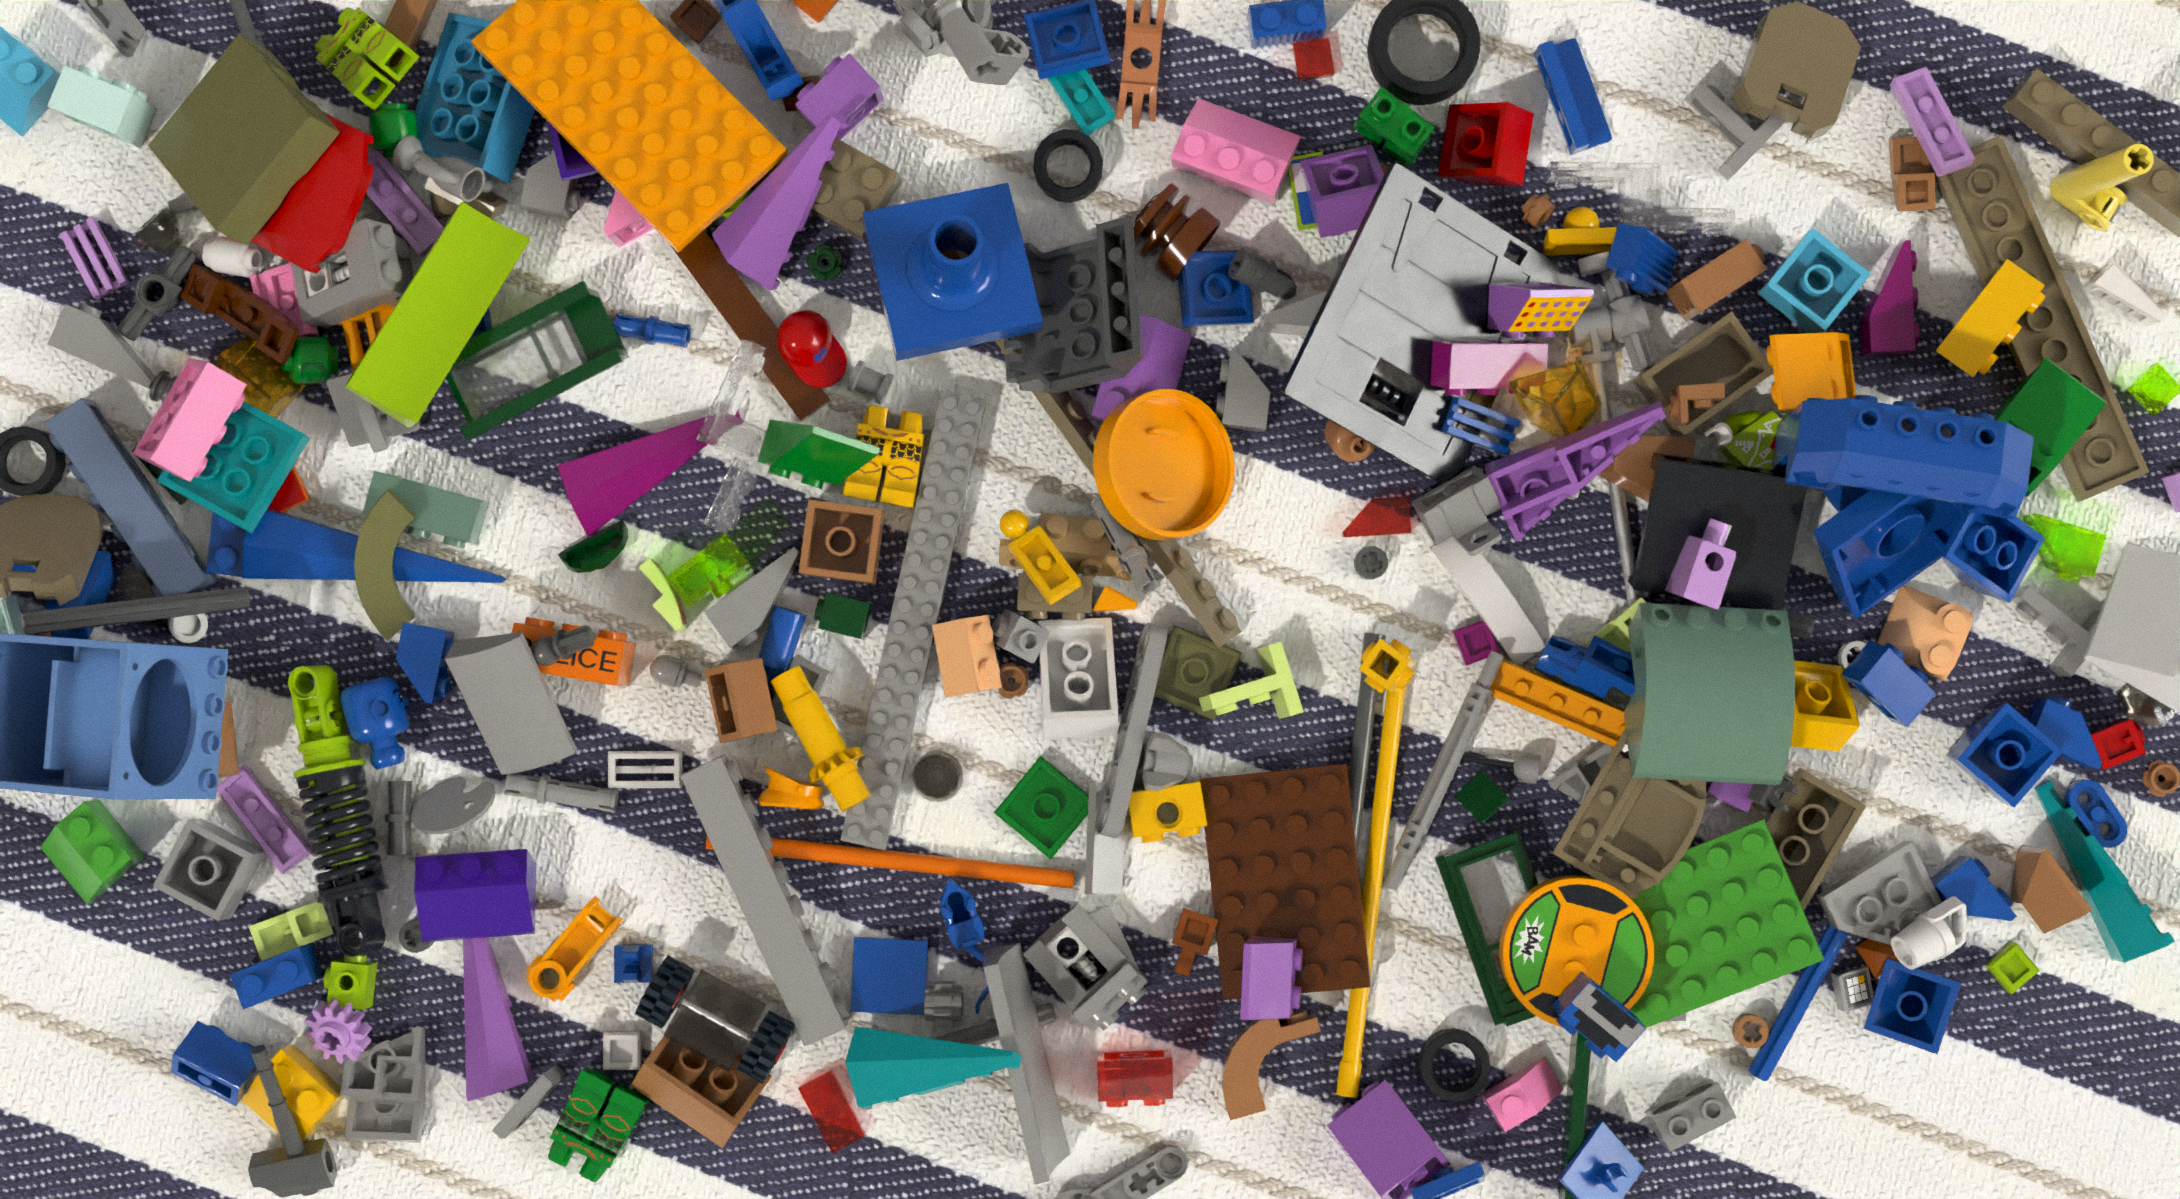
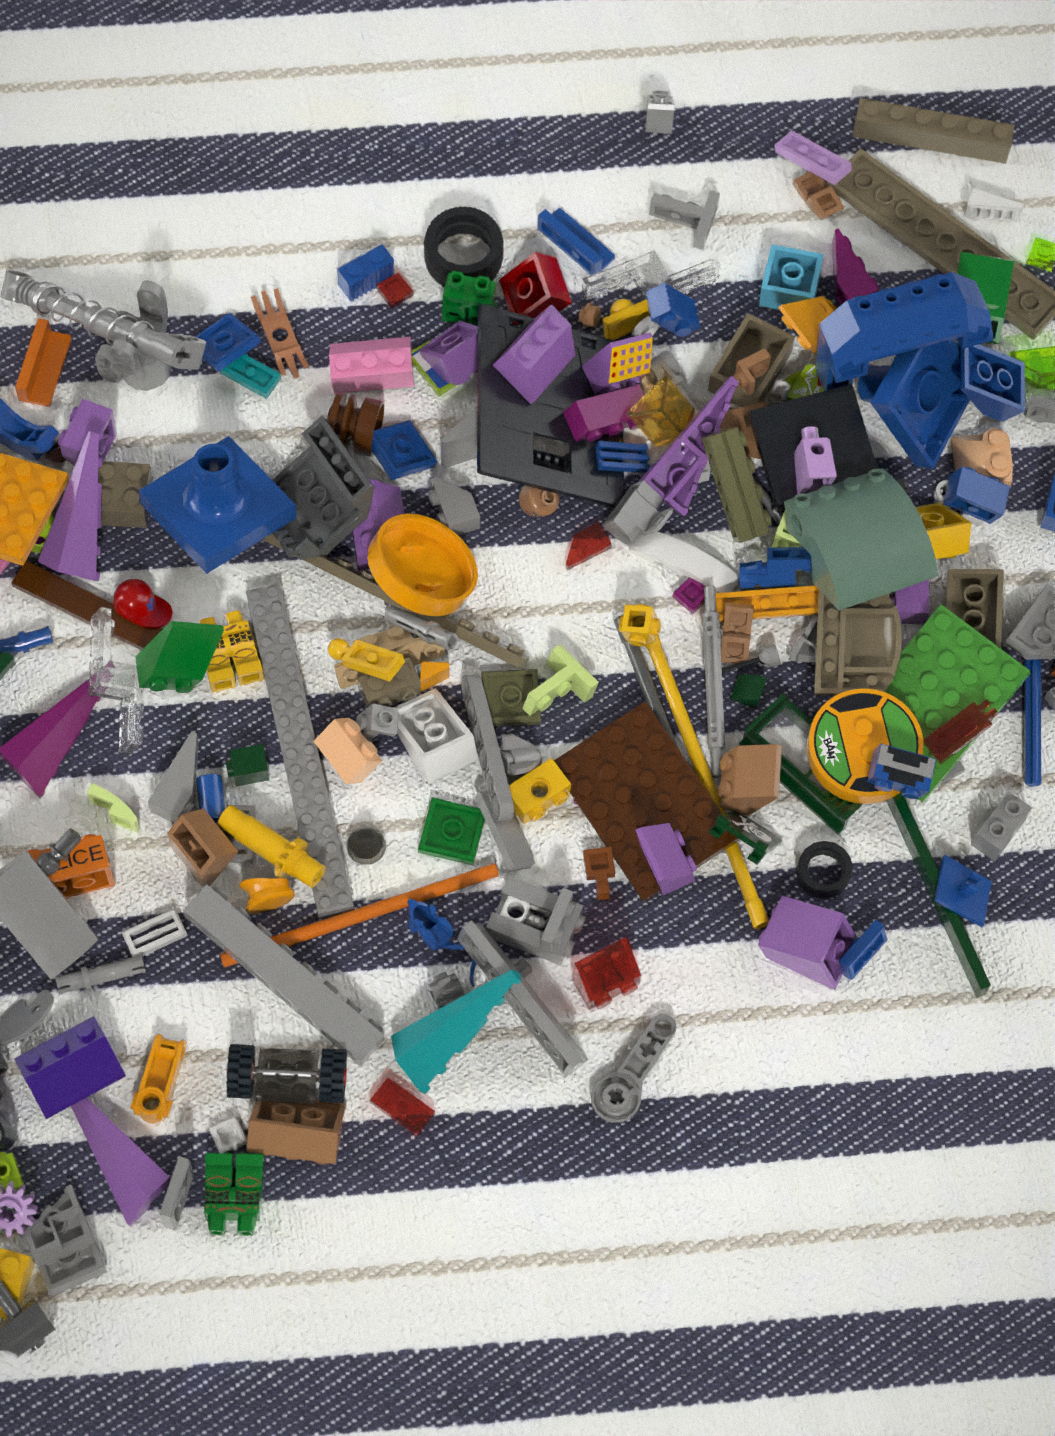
camera: 35 degrees left, 20 degrees down
(406, 942) = (45, 1128): dark grey bush -> none
(597, 550) = (49, 802): dark green plate -> none
(633, 963) = (207, 1070): blue tile -> none
(673, 672) = (143, 857): light grey cylinder -> none
(709, 571) = (139, 774): clear neon green brick -> none
(830, 271) = (125, 555): dark green plate -> none
(842, 542) = (224, 715): medium nougat brick -> none
(870, 382) = (193, 608): light grey bush -> none
(889, 975) = (398, 993): blue tile -> none
(1021, 676) = (392, 753): medium nougat plate -> none
(1062, 138) = (262, 437): black tyre -> none
(1246, 1054) = (680, 943): medium nougat arch -> none
(1261, 274) = (426, 426): dark grey hinge -> none
(1380, 556) = (589, 581): dark grey bush -> none
(1386, 986) = (747, 831): none -> dark green flag
(1422, 919) = (749, 777): none -> medium nougat slope
(1434, 256) = (538, 354): none -> medium lavender slope
(1502, 721) = (736, 632): none -> medium nougat slope
(1522, 1094) = (880, 868): bright pink slope -> none
(1598, 537) = (736, 484): none -> olive brick
(1628, 321) = (685, 352): light grey axle -> none
(1698, 992) = (960, 731): none -> clear red hinge
(1717, 279) = (727, 306): medium nougat slope -> none
(1738, 1032) = (1019, 754): medium nougat bush -> none
(1768, 796) = (936, 591): dark grey tile -> none
(1802, 54) = (711, 150): dark tan piece -> none
(1992, 319) = (915, 242): yellow brick -> none
(2091, 187) = (928, 155): light yellow axle -> none

